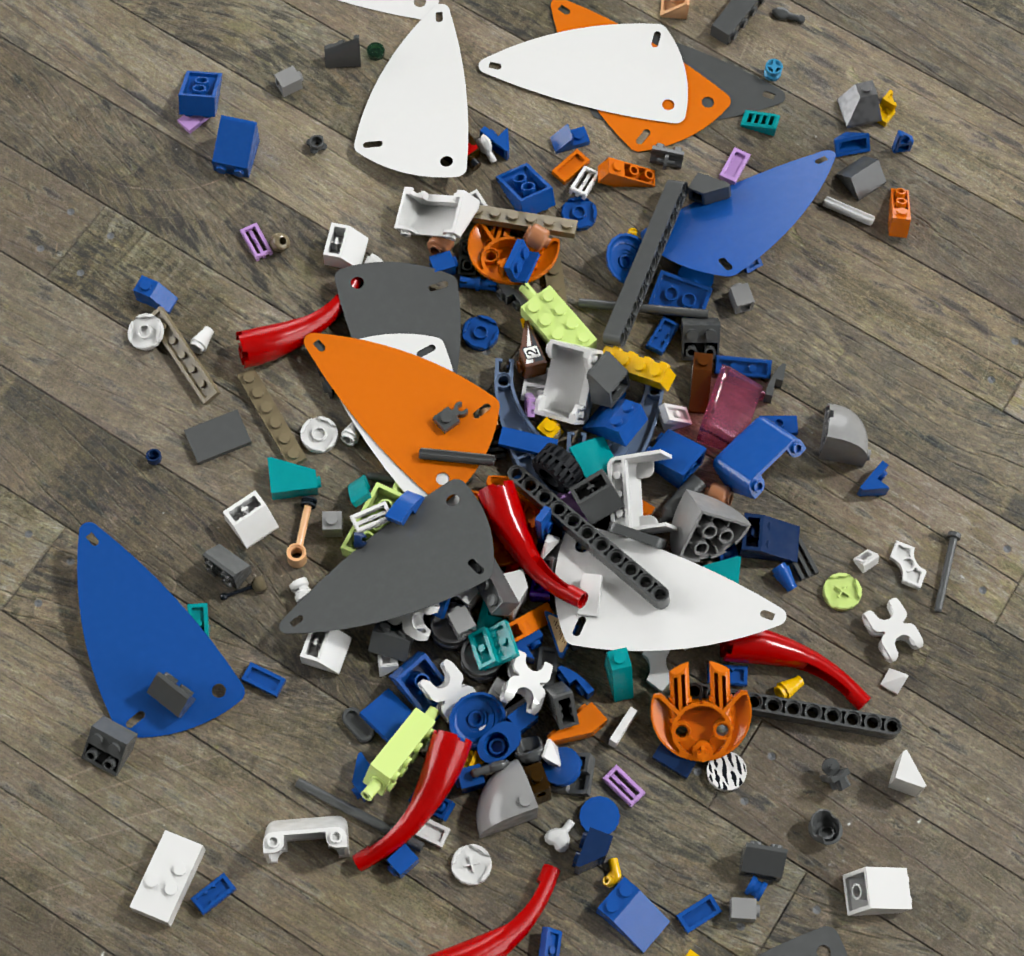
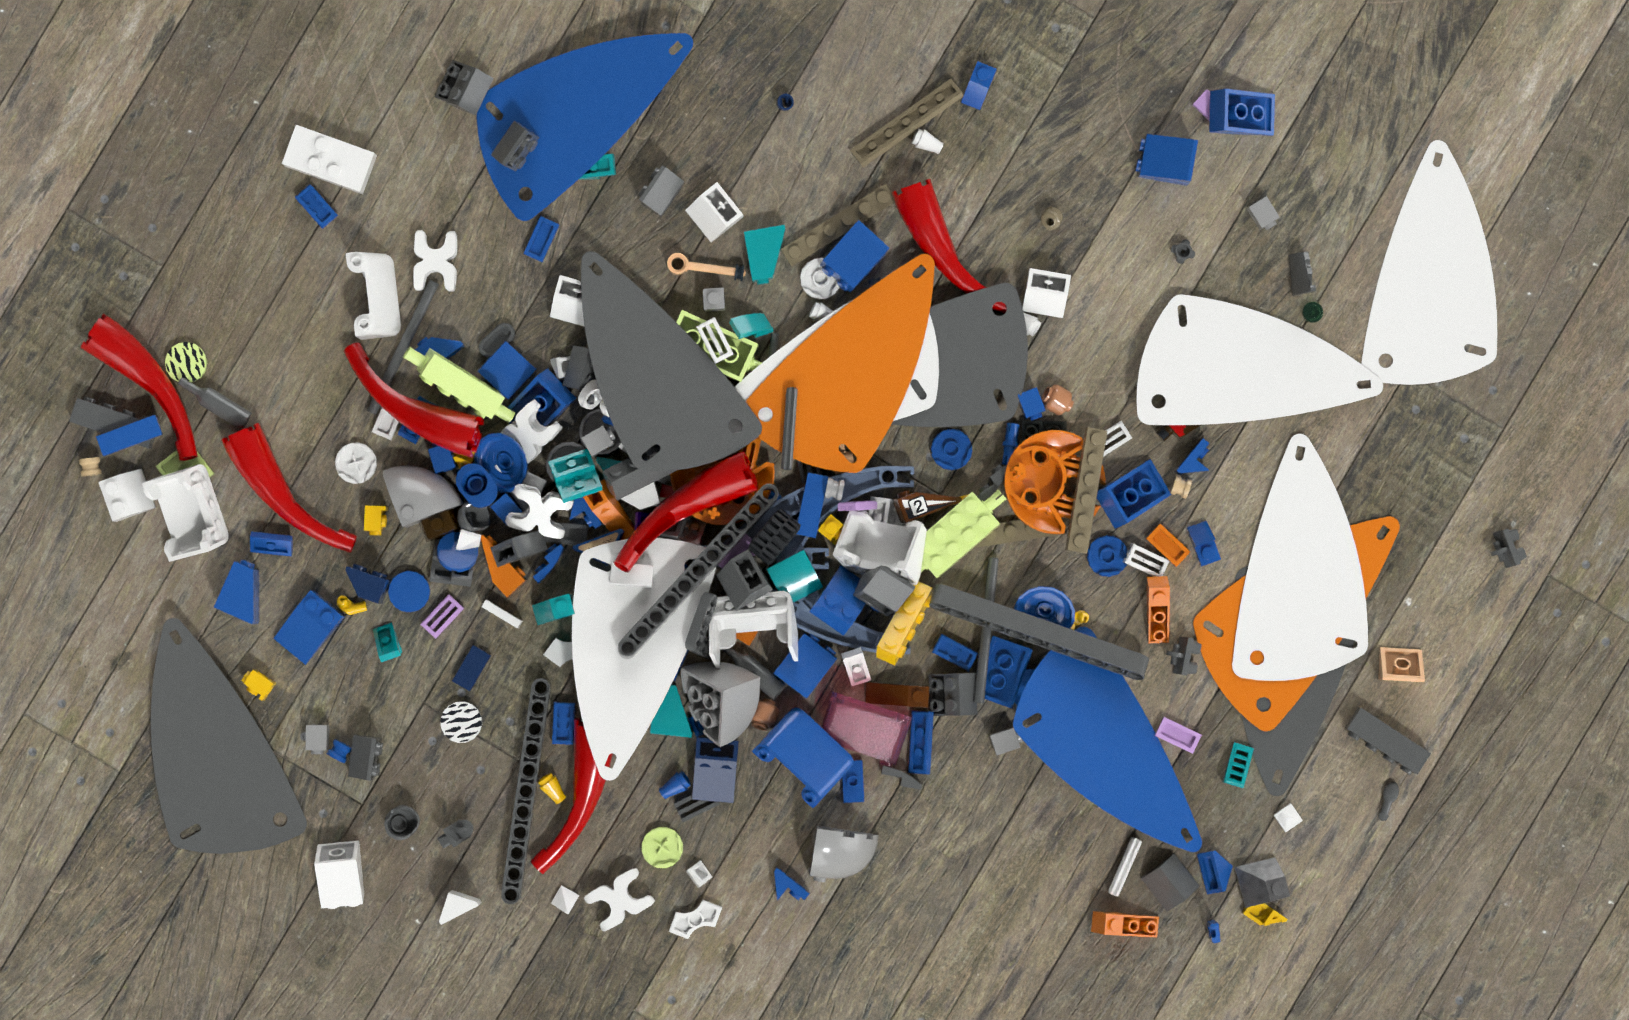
camera: 90 degrees right, 20 degrees up
(145, 332) = (933, 79): white tile -> none
(217, 437) = (813, 169): dark grey tile -> none
(258, 584) = (644, 226): hinge -> none
(262, 254) = (1038, 200): lavender tile -> none
(276, 778) = (435, 260): none -> white piece
(300, 588) = (638, 271): white wheel -> none
(301, 398) = (854, 257): none -> blue slope
(358, 543) = (687, 329): dark blue hinge -> none
(402, 861) = (354, 392): blue brick -> none
(403, 507) = (725, 374): blue slope -> none
(435, 214) = (1087, 392): white windscreen -> none
(449, 418) = (834, 417): dark grey plate -> none
(486, 147) = (1184, 447): white rock -> none
(492, 767) = (449, 481): dark grey piece -> none
(514, 419) = (834, 489): none -> light grey wheel
(520, 152) = (1181, 486): none -> tan wheel
(520, 262) = (1023, 490): blue bracket -> none
(528, 845) = (375, 519): none -> yellow brick
(537, 237) = (1060, 507): nougat head -> none
(543, 524) = (710, 524): blue plate -> none
(550, 542) = (691, 530): white slope -> none
(559, 836) = (387, 551): white rock -> none
(649, 837) = (387, 642): none -> teal slope
(698, 913) = (313, 693): blue tile -> none
(702, 716) = (510, 693): orange piece -> none
(708, 190) = (1139, 703): dark grey slope -> none
(776, 67) = (1312, 781): dark azure wheel -> none
(803, 87) = (1288, 817): none -> white tile
(953, 537) = (728, 970): dark grey bar -> none

